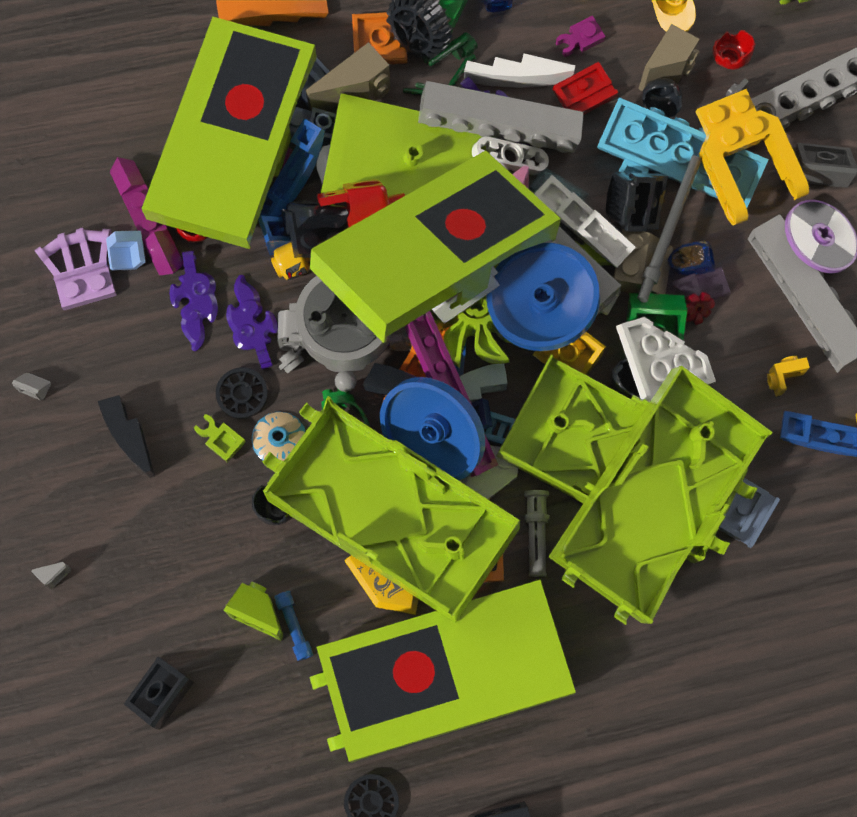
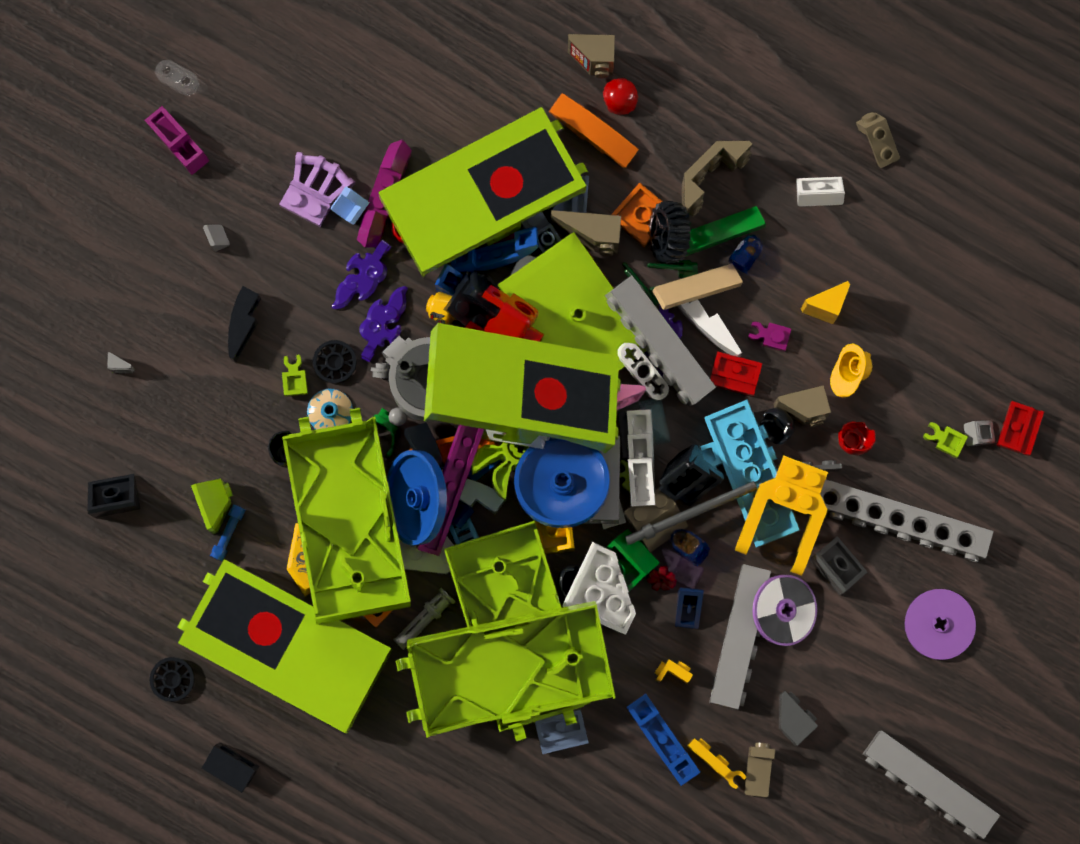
camera: 45 degrees right, 5 degrees up
(485, 47) = (697, 286): none -> tan tile
(743, 308) = (688, 608): none -> dark blue slope

